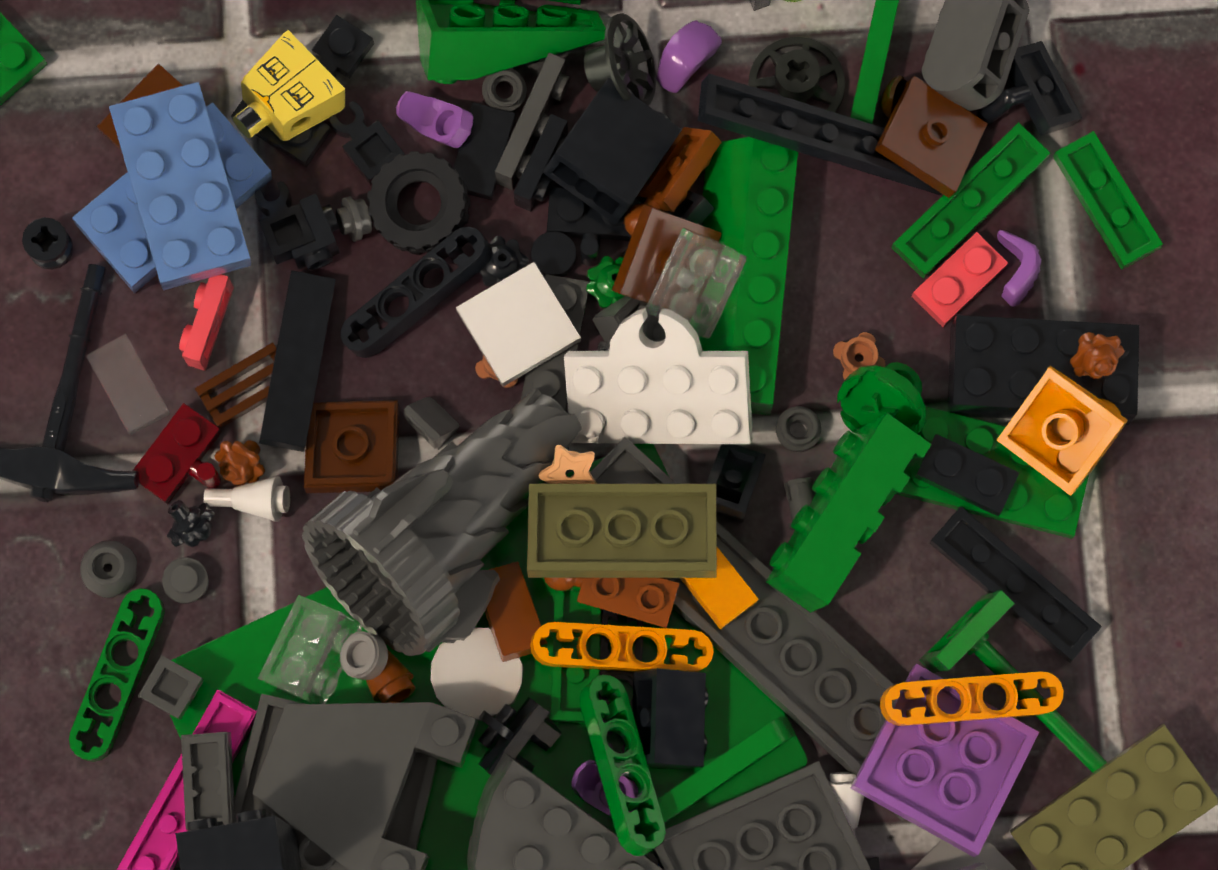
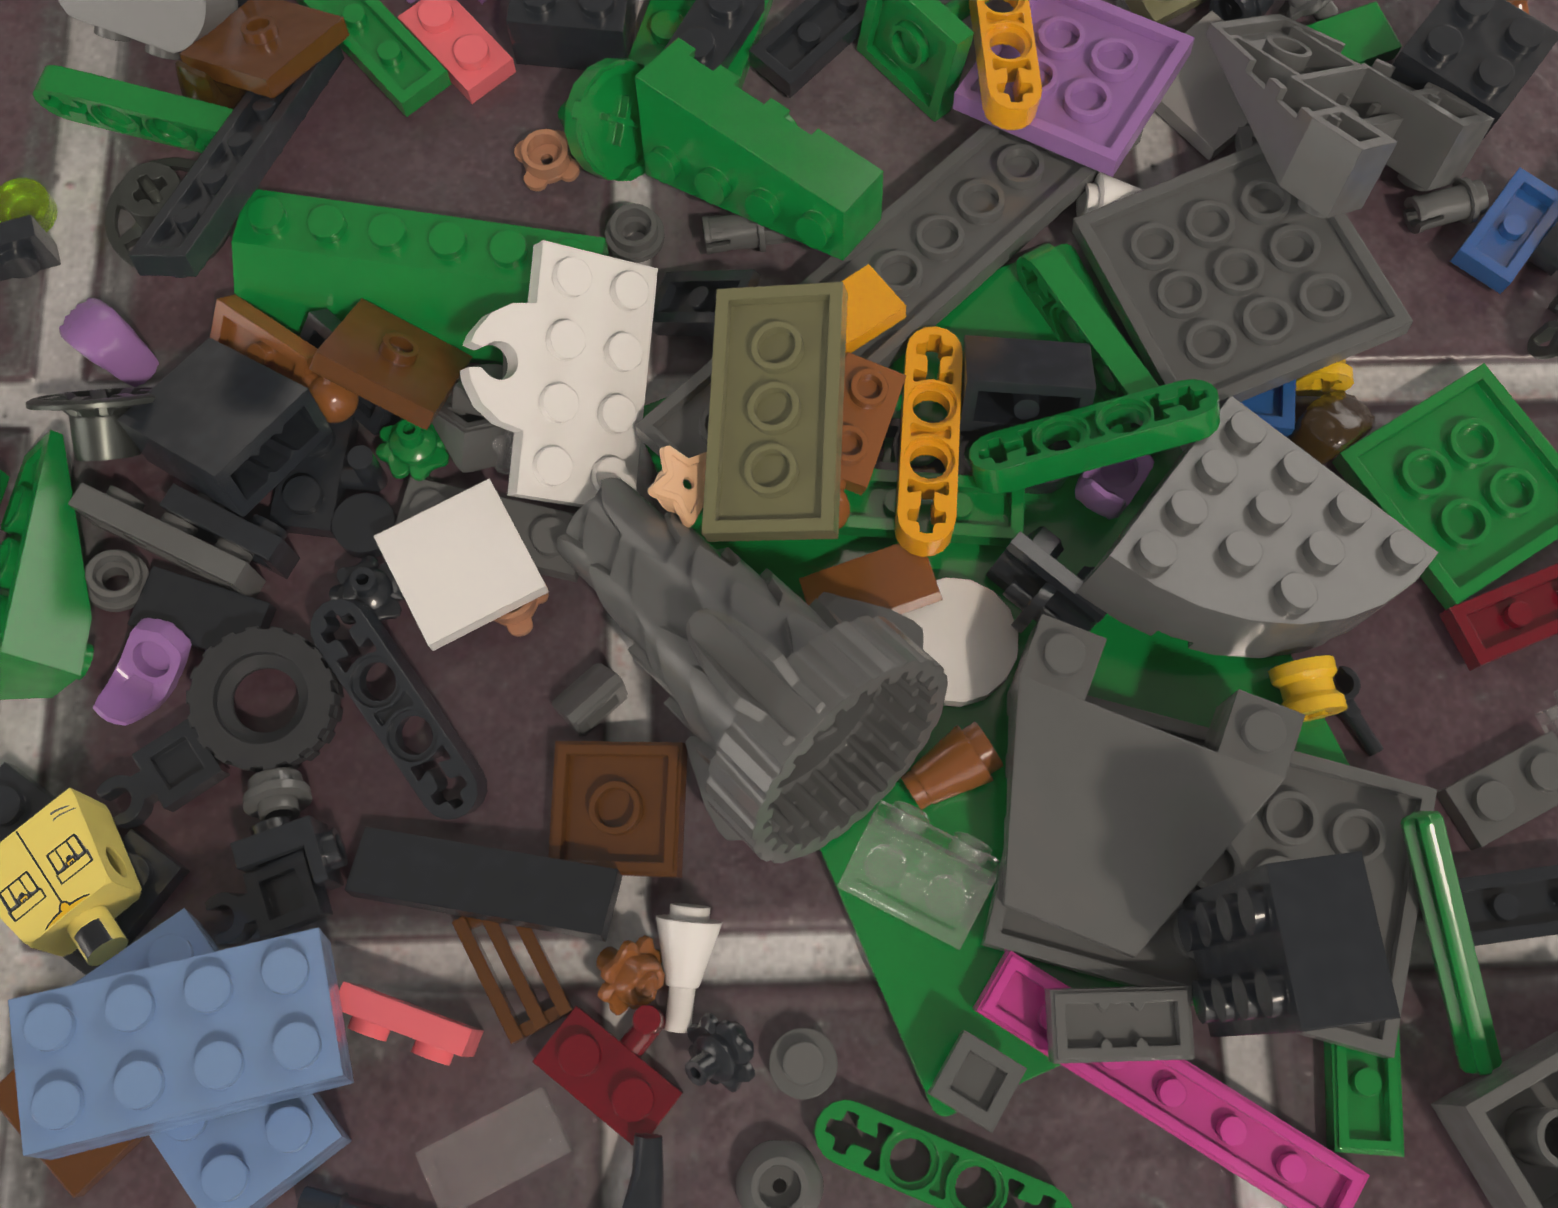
camera: 90 degrees left, 5 degrees down
(364, 655) = (935, 786): light grey tile -> none
(697, 281) = (424, 316): clear bracket -> none

